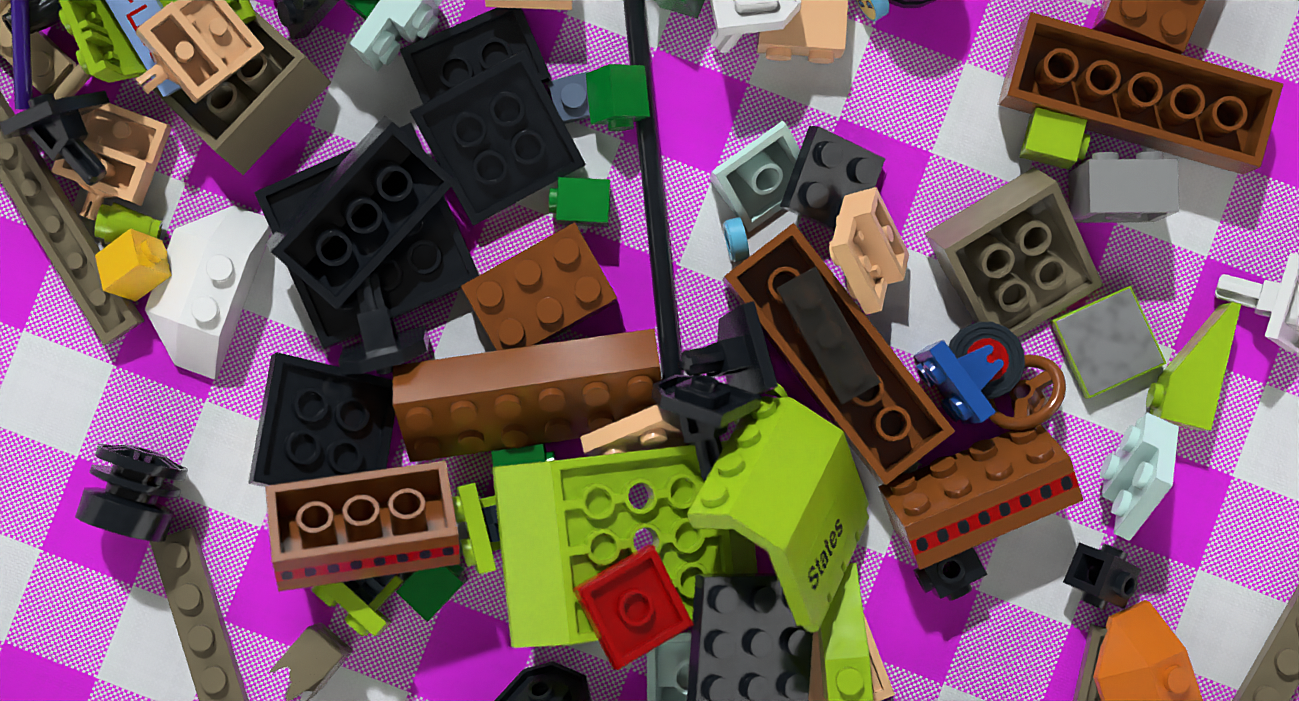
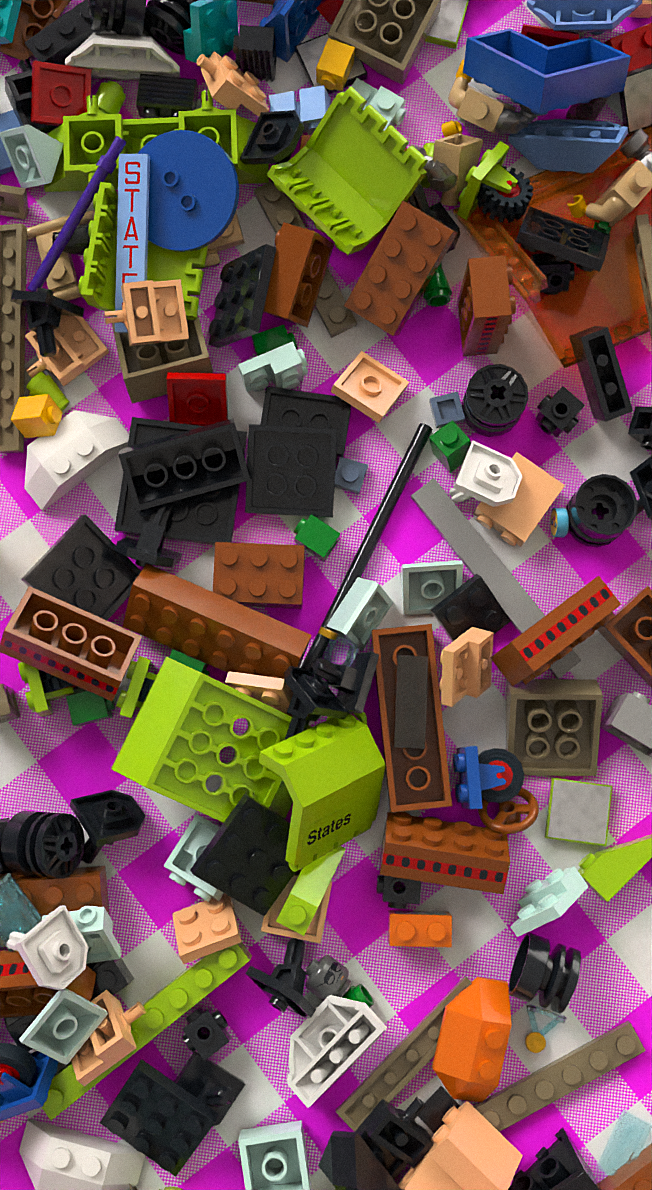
camera: 30 degrees right, 5 degrees down
(322, 117) = (197, 398): none -> red plate
(617, 96) = (375, 489): green brick -> none
(633, 607) = (196, 788): red tile -> none
(680, 313) = (353, 649): none -> clear light blue piece
(693, 262) = (360, 612): none -> light aqua slope
(736, 239) = (393, 614): medium azure tile -> none
(807, 105) = (483, 561): none -> light grey tile
(954, 139) = (557, 633): none -> dark orange brick
(1003, 602) = (419, 928): none -> orange brick
(1054, 139) = (618, 670): lime brick -> none
(1102, 576) = (489, 949): black brick -> none
(1187, 562) = (551, 975): none -> black wheel
(1220, 647) = (535, 1040): none -> clear light blue piece

